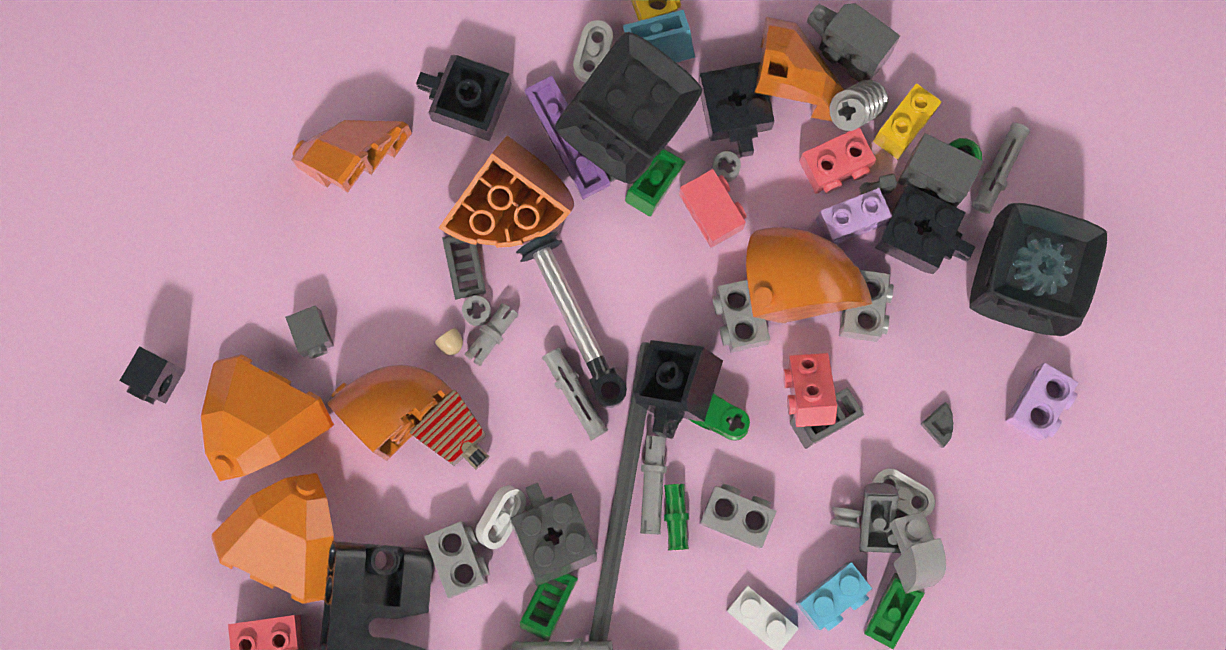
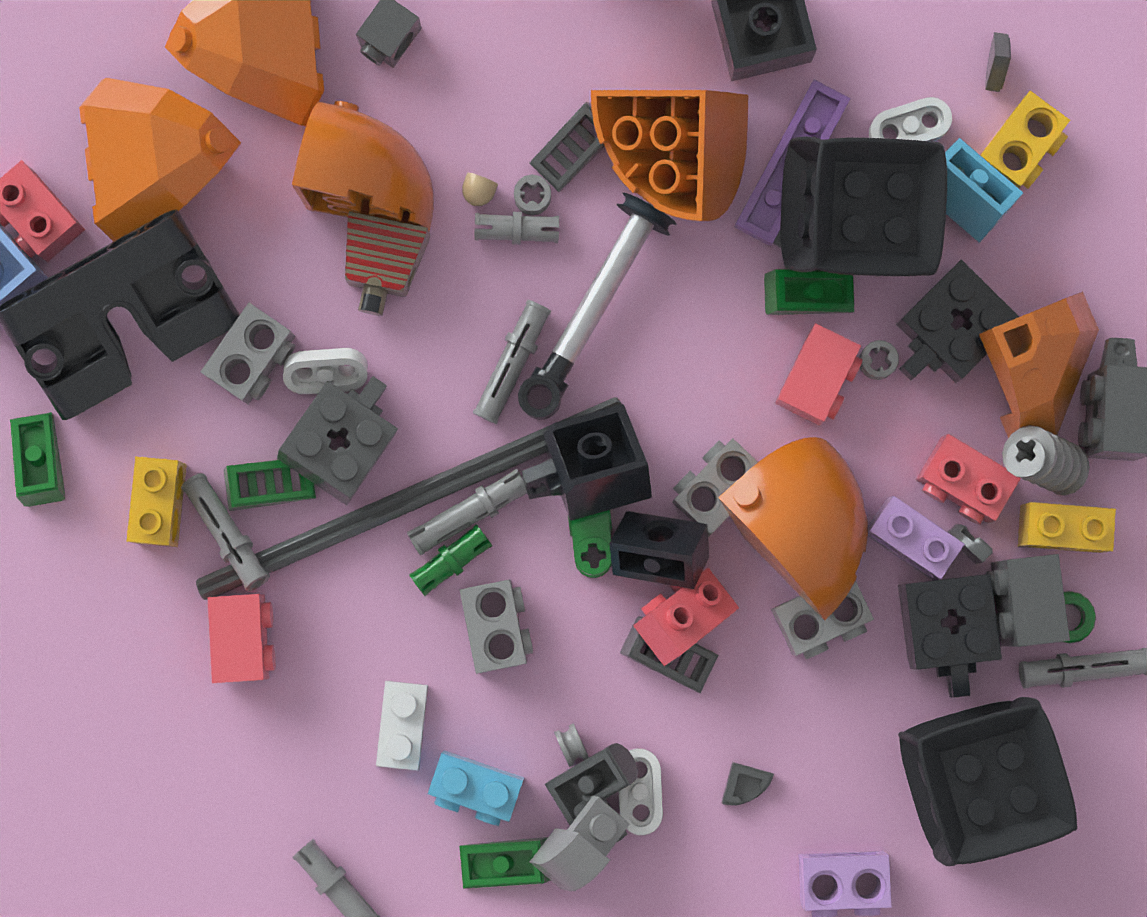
camera: 55 degrees right, 5 degrees up
(759, 378) = (659, 549): none -> black brick
(1036, 255) = (983, 795): clear light blue gear -> none

